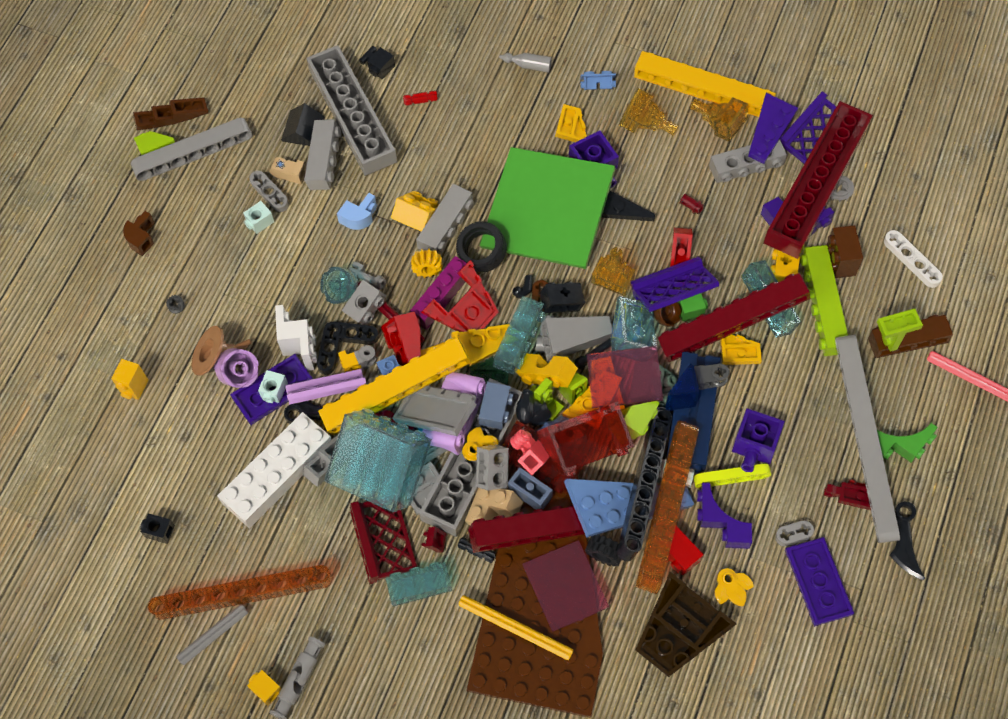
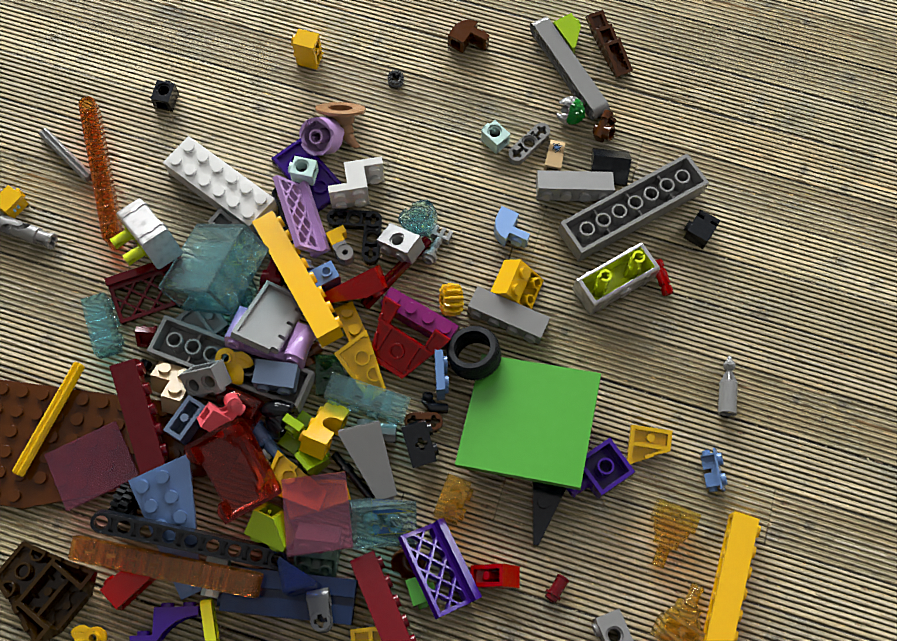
camera: 80 degrees right, 5 degrees up
(242, 149) = (572, 111): none -> piece
(265, 126) = (605, 129): none -> reddish brown plate
(329, 527) = (149, 233): none -> flat silver piece
(420, 130) = (615, 278): none -> piece
(500, 275) = (442, 381): none -> medium blue plate

